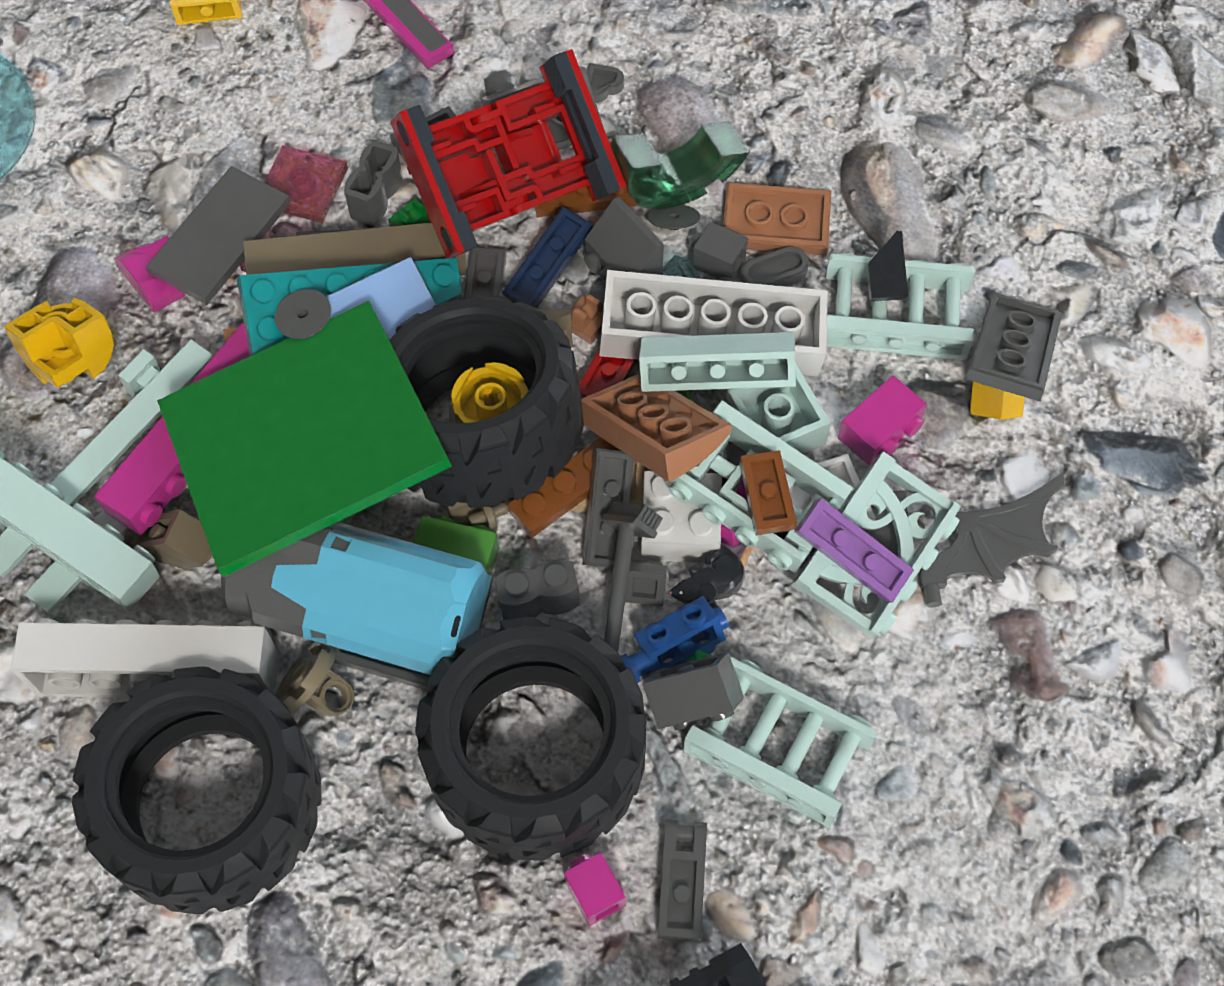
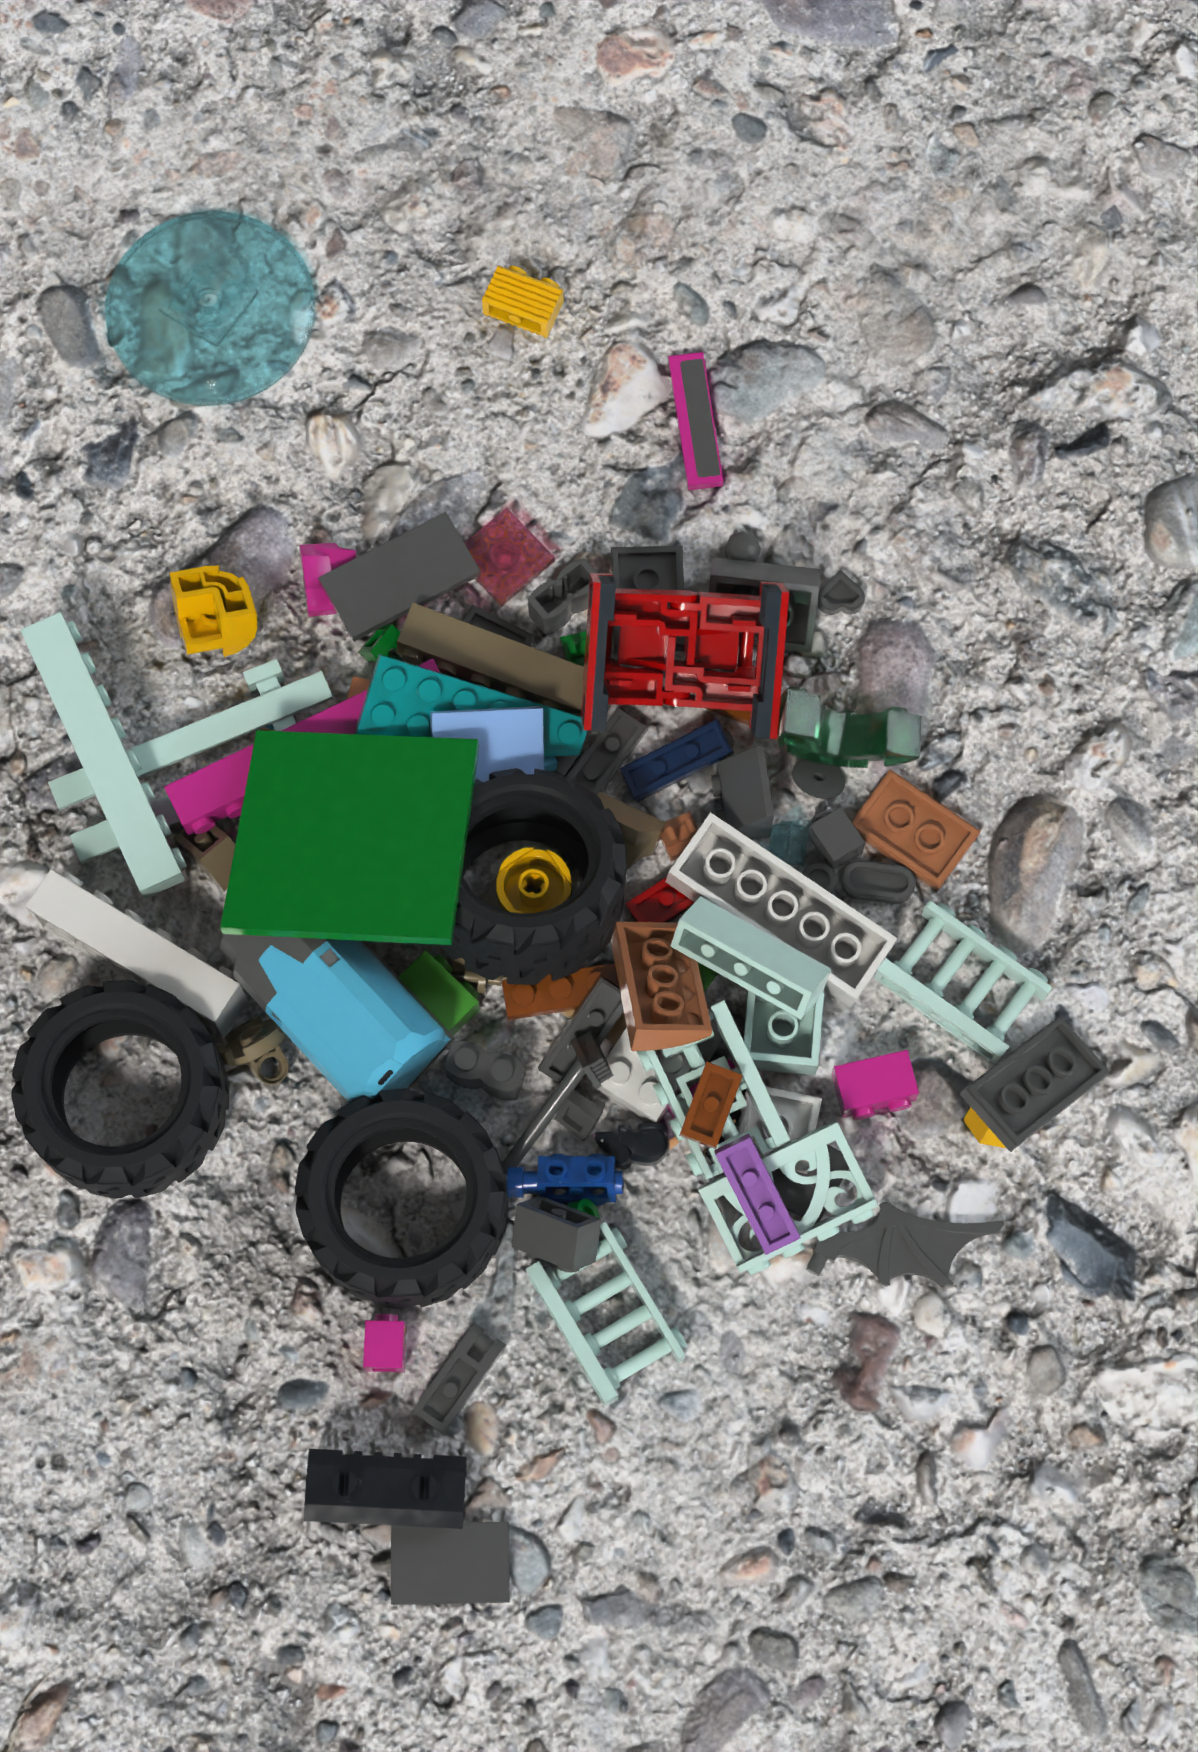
camera: 30 degrees right, 10 degrees up
(229, 303) = (380, 643): none -> green tile
(302, 314) = (416, 720): dark grey piece -> none
(888, 271) = (968, 948): black tile -> none

